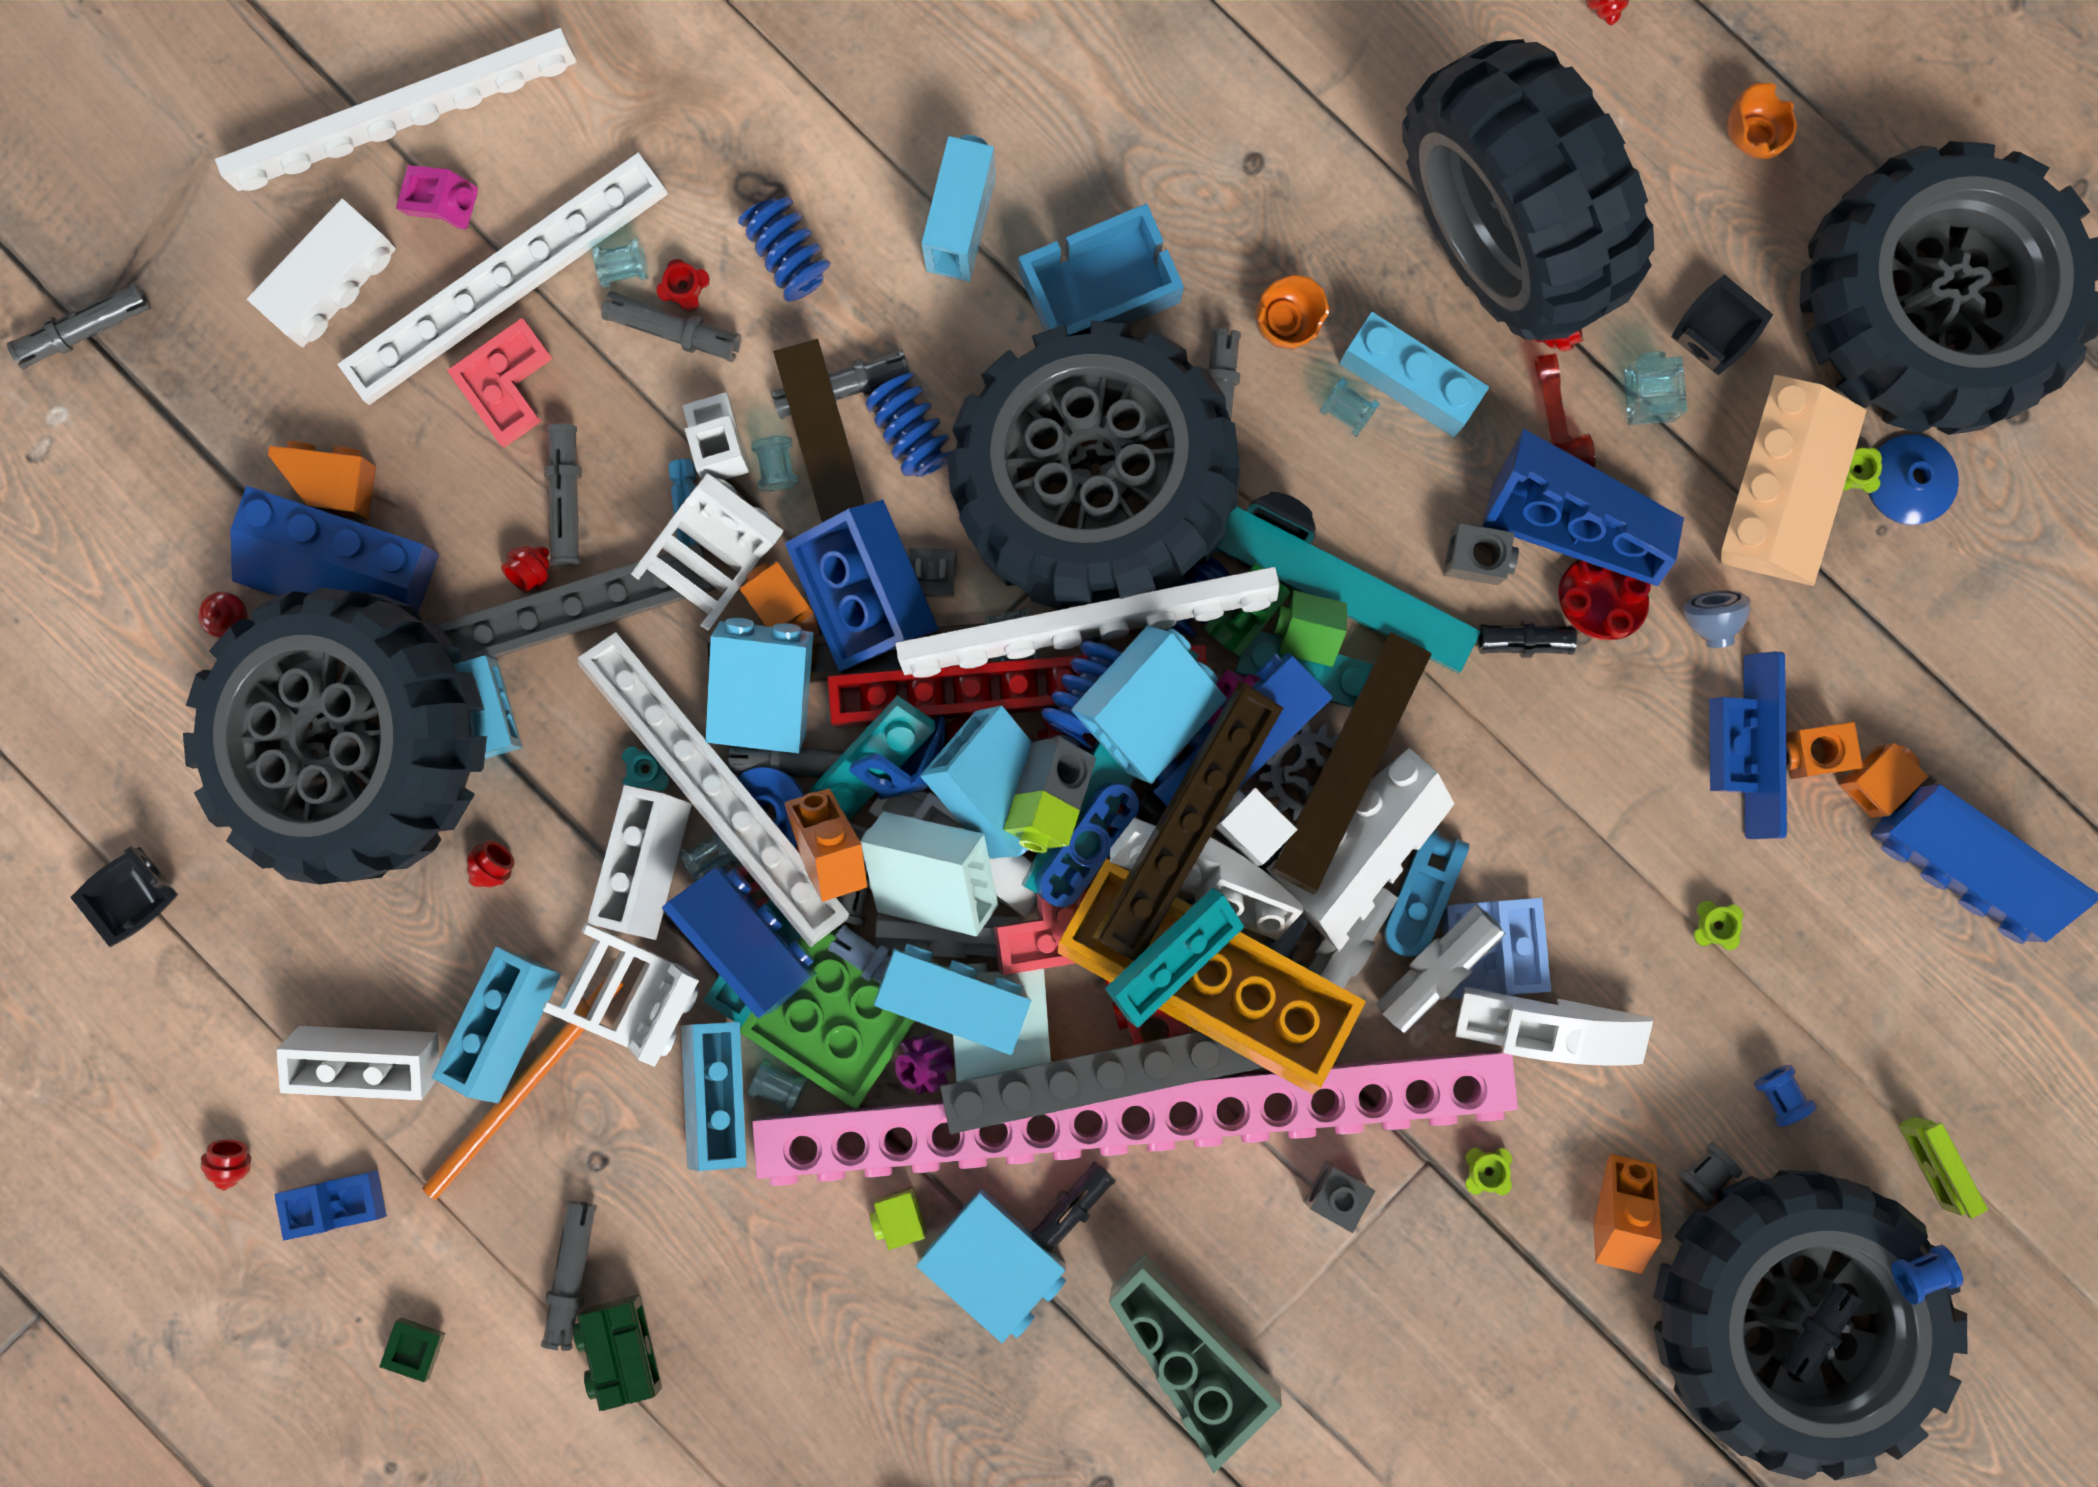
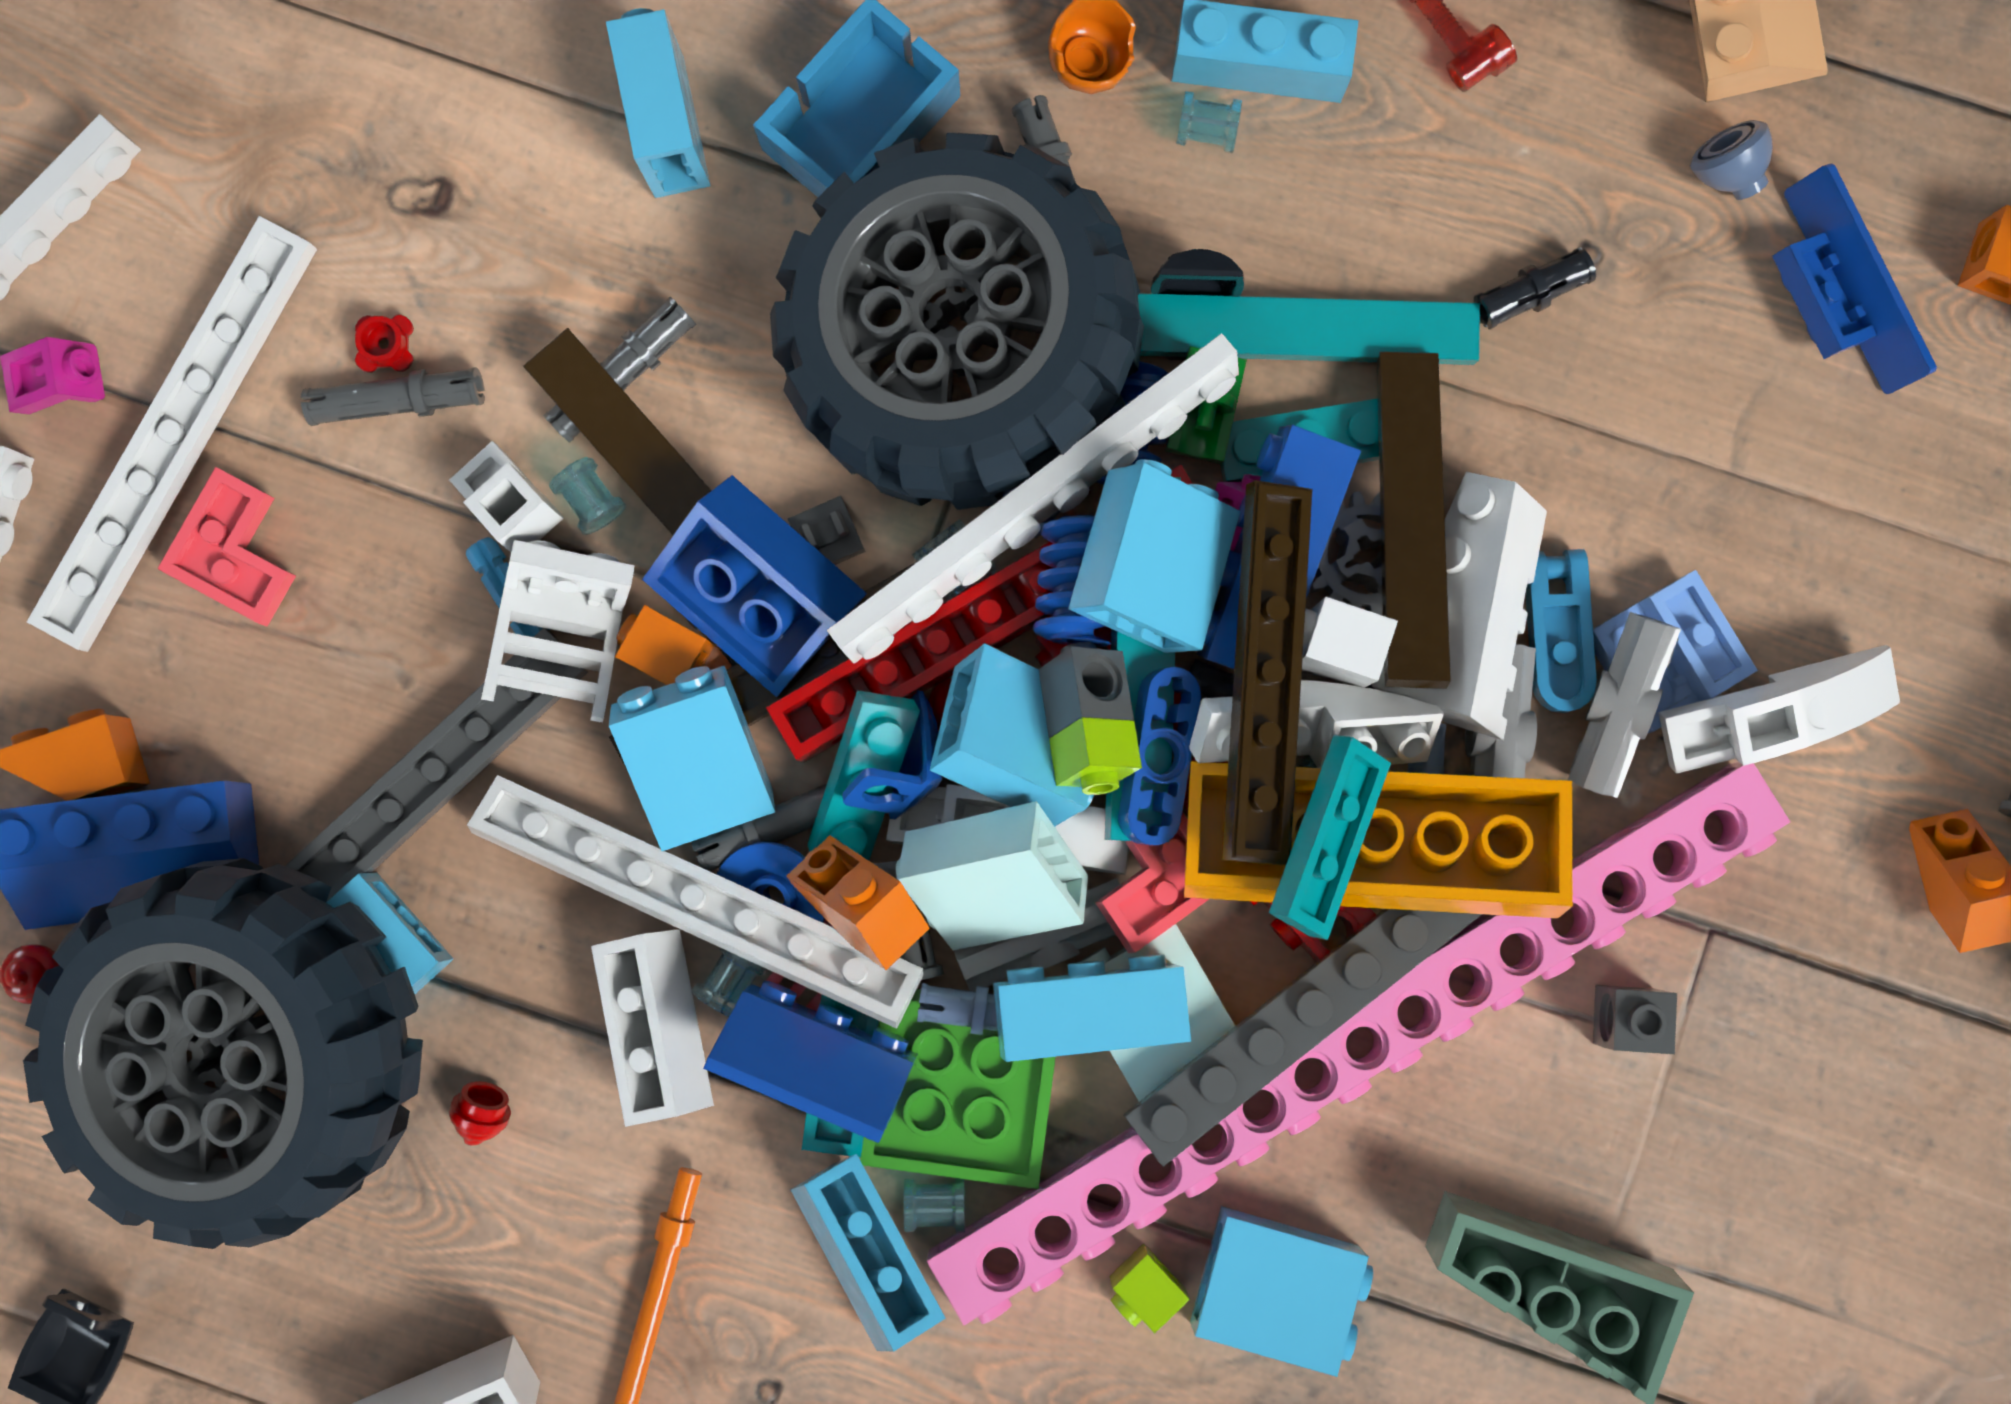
camera: 20 degrees left, 0 degrees up
(496, 1026) = (577, 1295): medium azure brick -> none
(527, 567) = (359, 750): red plate -> none
(563, 494) = (361, 647): dark grey pin -> none
(620, 262) = (299, 351): clear light blue bush -> none
(634, 760) = (600, 931): teal plate -> none
(651, 1008) = (746, 1191): white plate -> none
(784, 247) = (479, 244): blue piece -> none
(907, 427) = (719, 382): blue piece -> none
(924, 1063) = (1090, 1097): magenta gear -> none
(1050, 1230) = (1329, 1218): black pin -> none
(1311, 627) = (1289, 388): bright green brick -> none
(1462, 564) = (1415, 230): dark grey brick -> none
(1498, 1181) = (1802, 912): lime plate -> none
(1581, 512) = (1528, 113): blue wedge -> none
(1603, 601) = (1598, 199): red dish -> none
(1731, 922) = (1921, 502): lime plate -> none
(1840, 748) = (1945, 243): orange brick -> none

